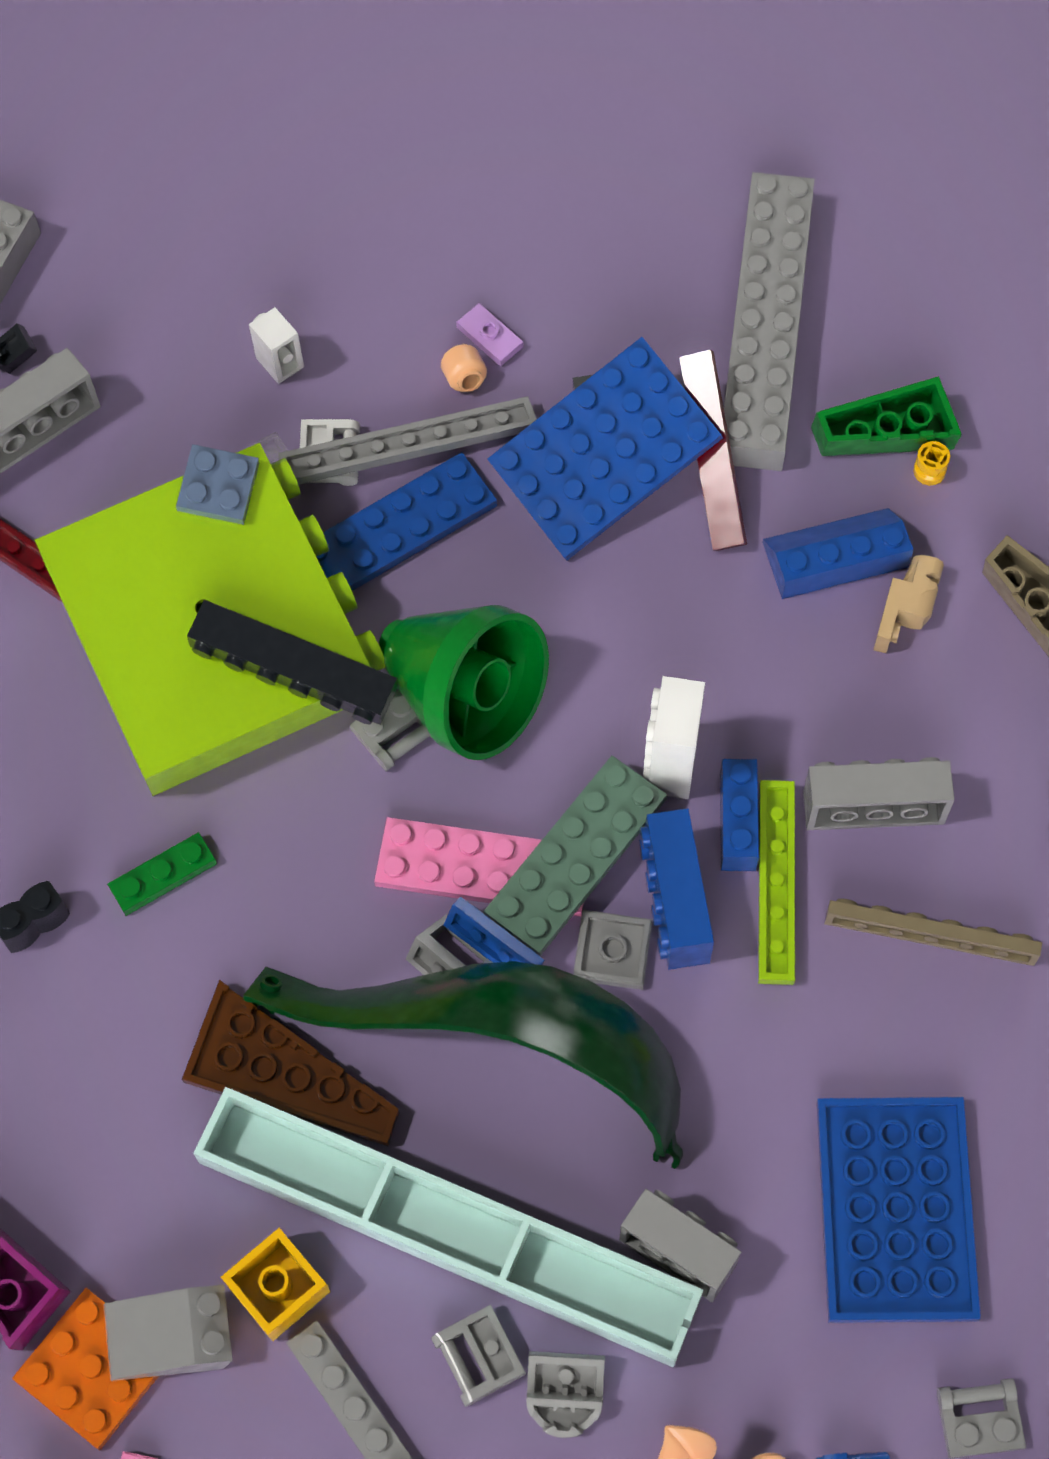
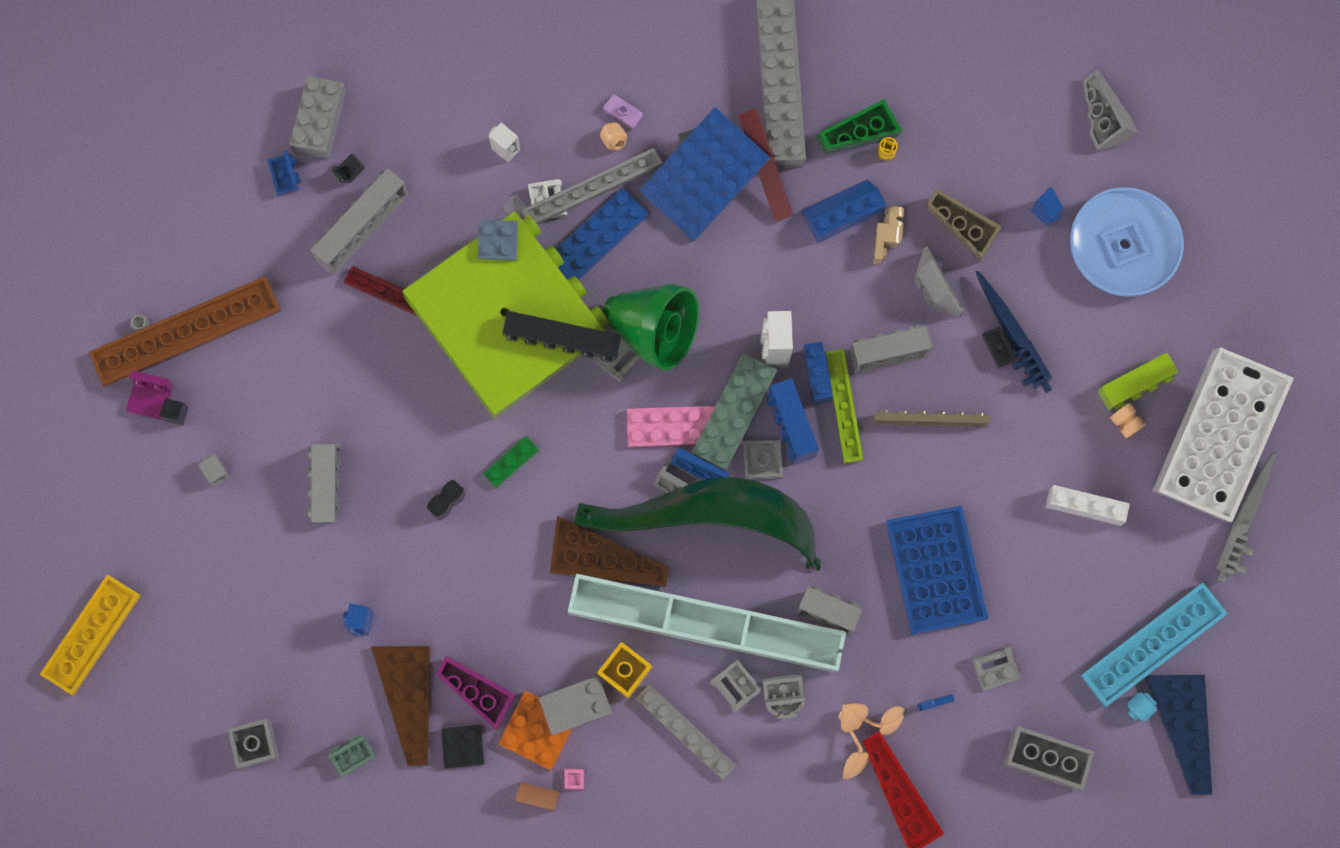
camera: 15 degrees left, 10 degrees up
(978, 704) = (935, 286): none -> light grey wedge

